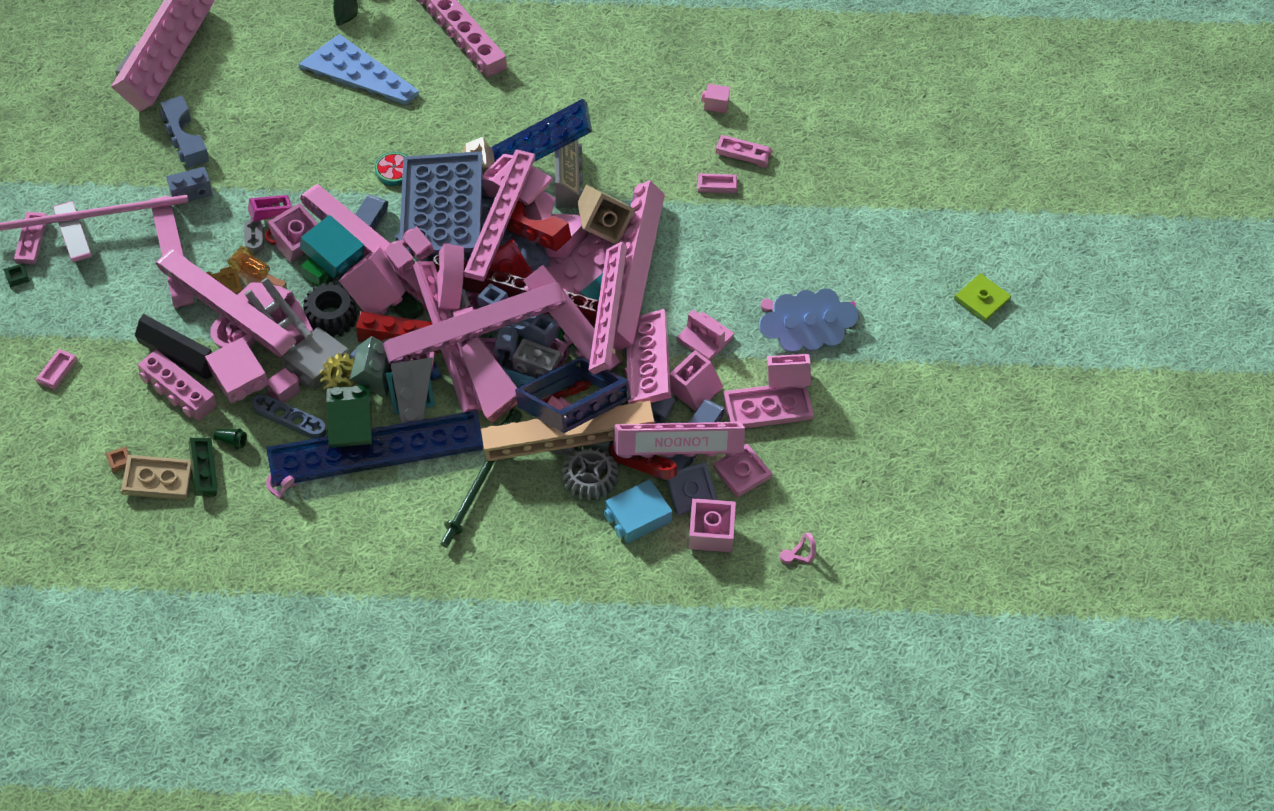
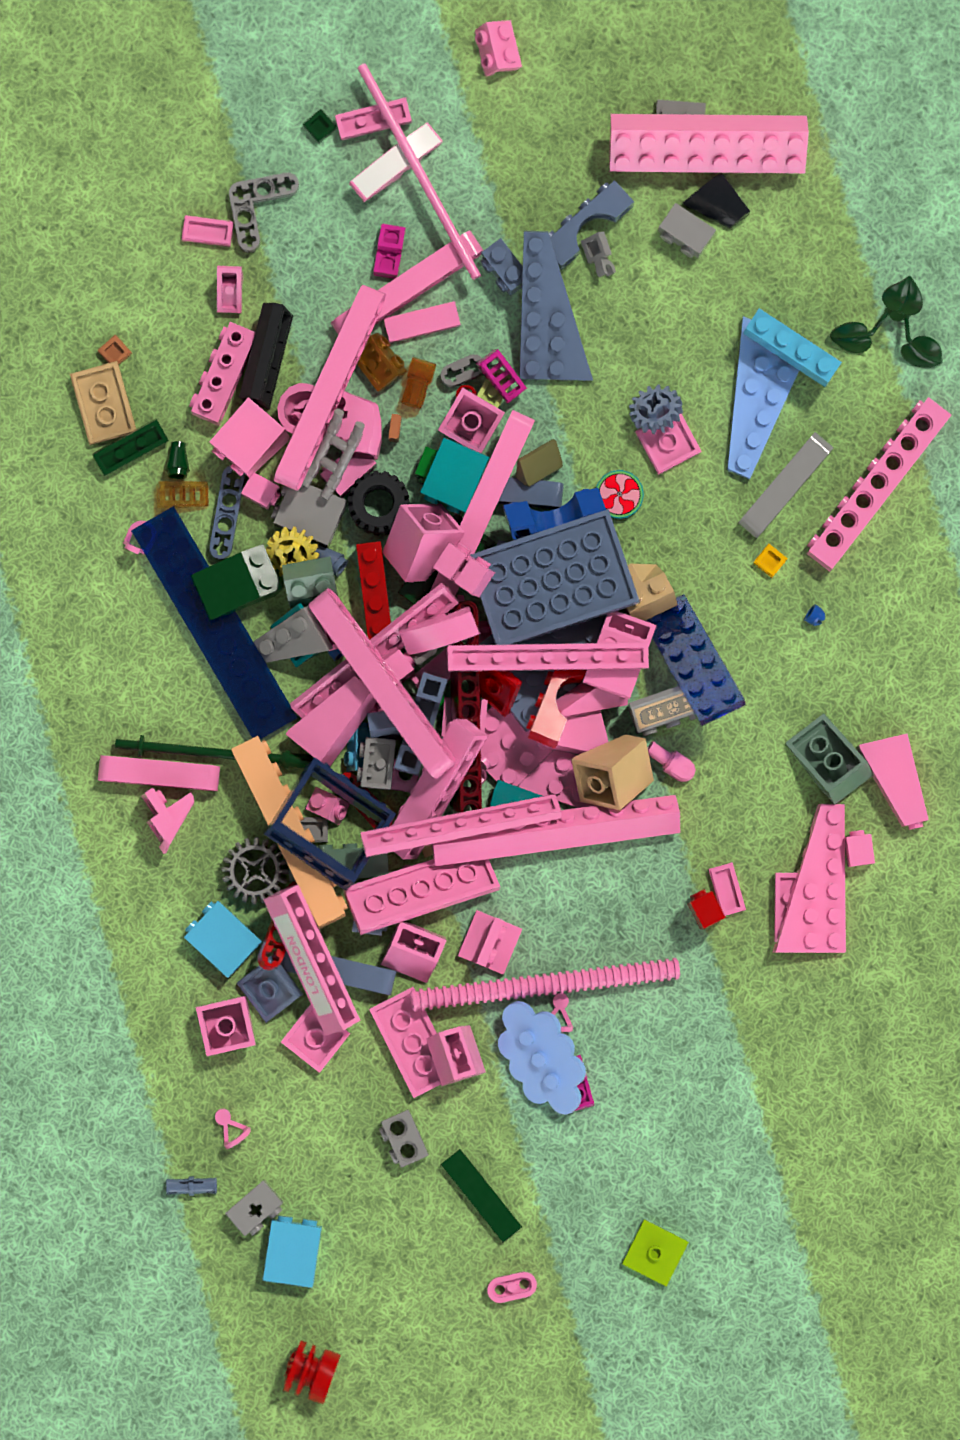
camera: 70 degrees right, 30 degrees up
(21, 151) = (497, 47): none -> bright pink bracket
(50, 336) = (247, 202): none -> light grey beam
(107, 358) = (229, 289): none -> bright pink slope
(135, 256) = (389, 251): none -> dark pink slope
(204, 247) = (422, 322): none -> bright pink tile
(207, 130) = (597, 251): none -> light grey plate
(209, 55) = (718, 202): none -> black slope
(219, 77) = (686, 231): none -> light grey brick
(247, 169) = (548, 328): none -> sand blue wing
(258, 456) = (181, 485): none -> clear orange slope
(336, 34) = (792, 347): none -> medium azure brick
(341, 125) = (656, 409): none -> sand blue gear
(349, 200) = (539, 463): none -> olive slope
(368, 131) = (670, 447): none -> bright pink tile
(388, 213) = (525, 521): none -> blue brick
(433, 71) = (785, 485): none -> light grey beam
(481, 521) = (158, 773): none -> bright pink beam
(483, 96) = (770, 560): none -> yellow tile
(519, 520) = (166, 820): none -> bright pink piece
(534, 81) = (815, 616): none -> blue hinge
(613, 185) = (672, 763): none -> bright pink arm
(643, 97) = (829, 759): none -> sand green slope
(673, 64) = (897, 778): none -> bright pink slope
(729, 190) = (705, 909): none -> red brick
(739, 129) = (817, 899): none -> bright pink wing
(751, 308) = (545, 984): none -> bright pink piece
(839, 593) = (191, 1186): none -> sand blue pin
(844, 426) = (409, 1136): none -> light grey brick
(871, 549) = (240, 1212): none -> light grey brick
(905, 395) = (481, 1195): none -> dark green tile
(916, 533) = (292, 1252): none -> medium azure brick
(985, 394) = (512, 1288): none -> bright pink plate
(1022, 539) = (311, 1372): none -> red wheel

